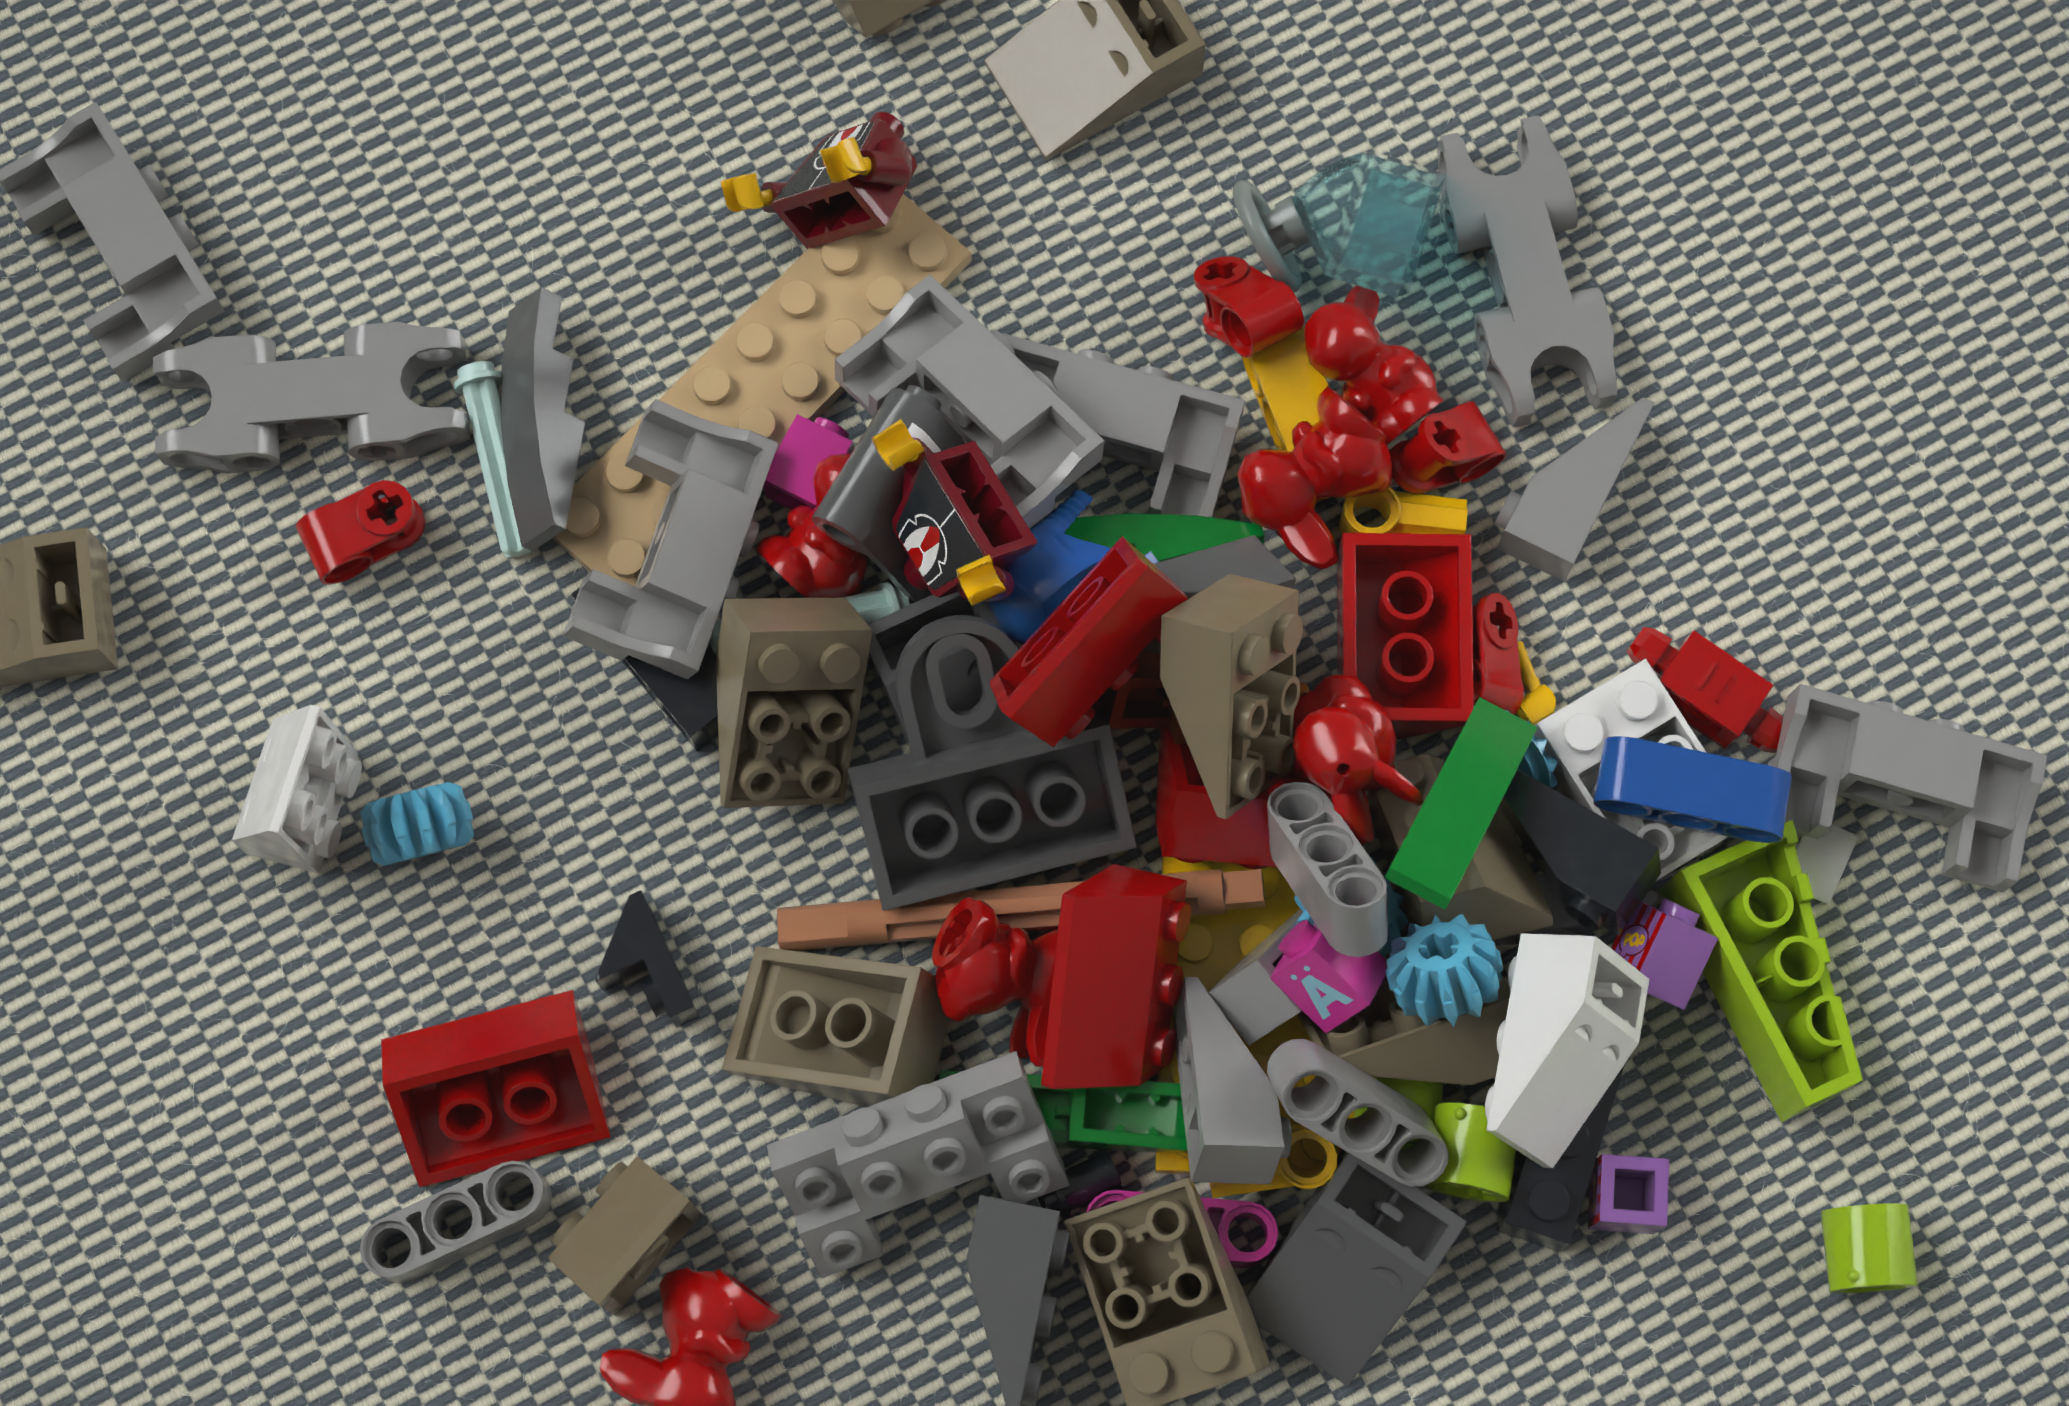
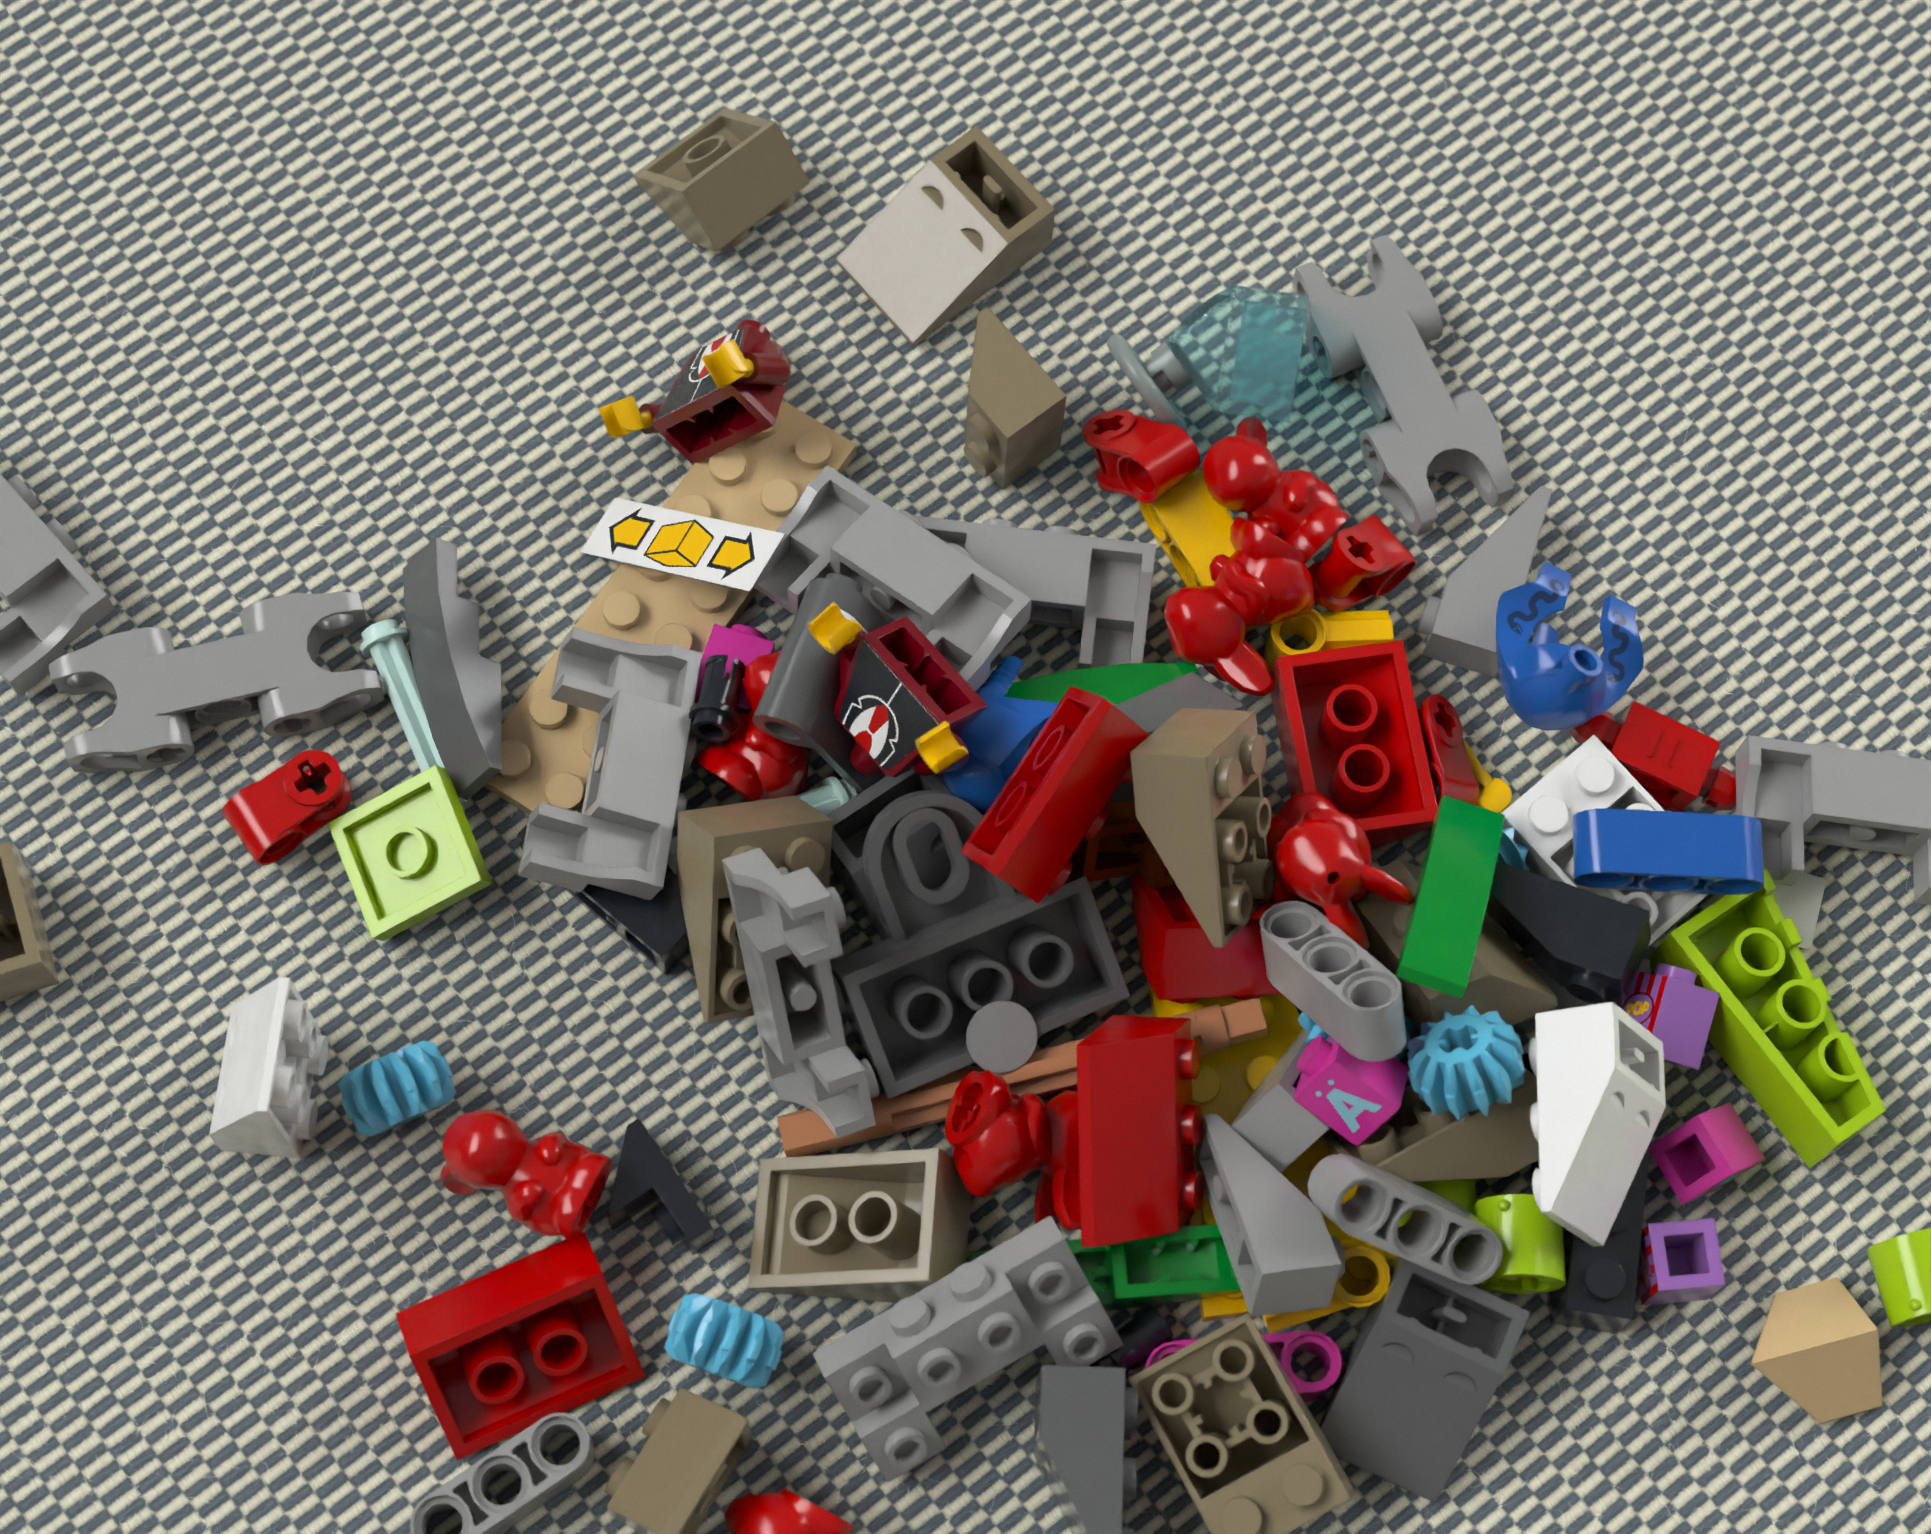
camera: 15 degrees left, 5 degrees down
(467, 595) = (409, 853): none -> plate
(540, 936) = (545, 1181): none -> red animal
(687, 1118) = (724, 1340): none -> medium azure gear
(779, 330) = (683, 543): none -> sticker
(780, 504) = (716, 712): none -> black pin
(809, 801) = (786, 943): none -> light grey bracket
(1003, 867) = (1001, 1036): none -> light grey sticker
(1125, 237) = (1011, 406): none -> dark tan slope
(1608, 598) = (1558, 683): none -> blue piece
(1678, 1092) = (1706, 1153): none -> dark pink brick
(1753, 1304) = (1821, 1351): none -> tan slope

